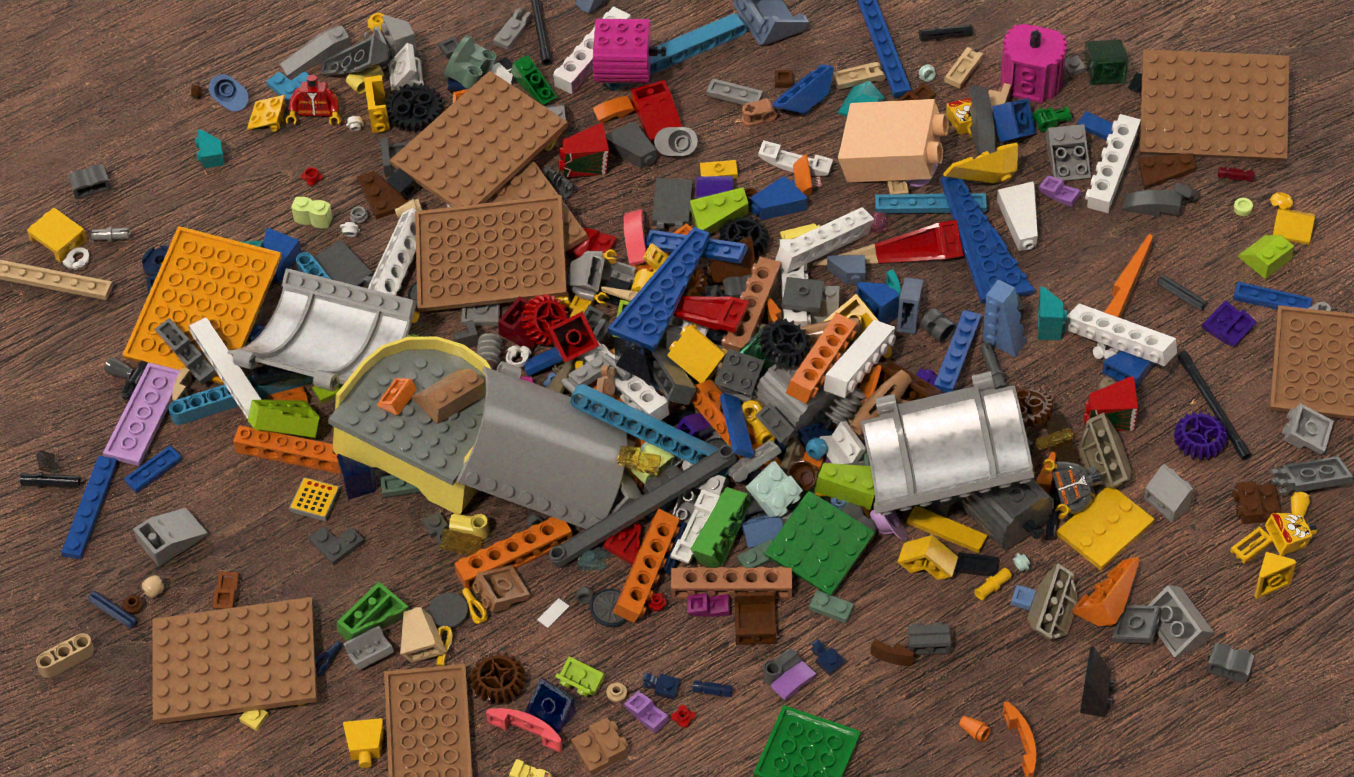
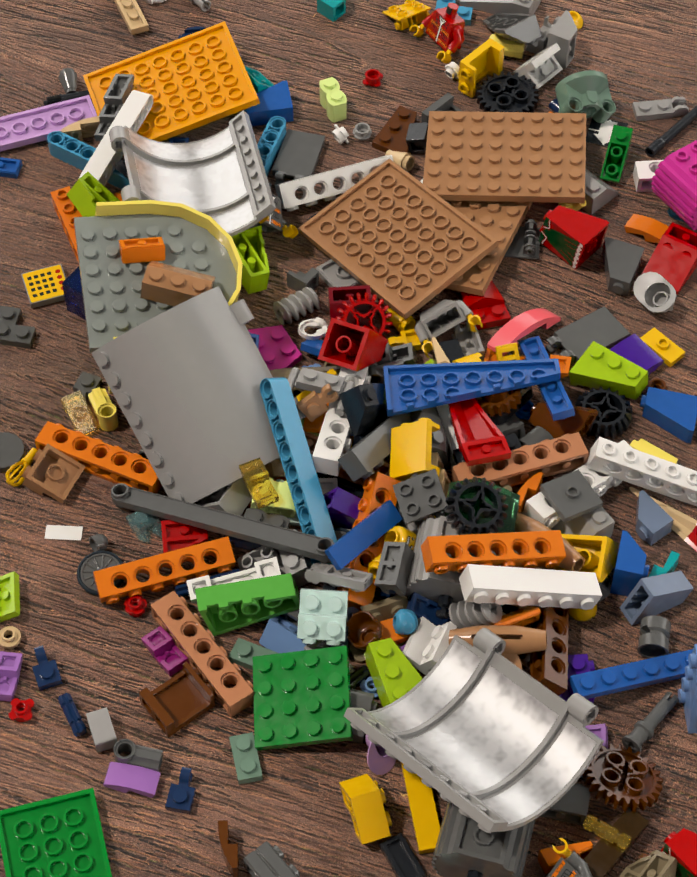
camera: 50 degrees right, 0 degrees up
(741, 676) = (101, 729): none -> light grey piece

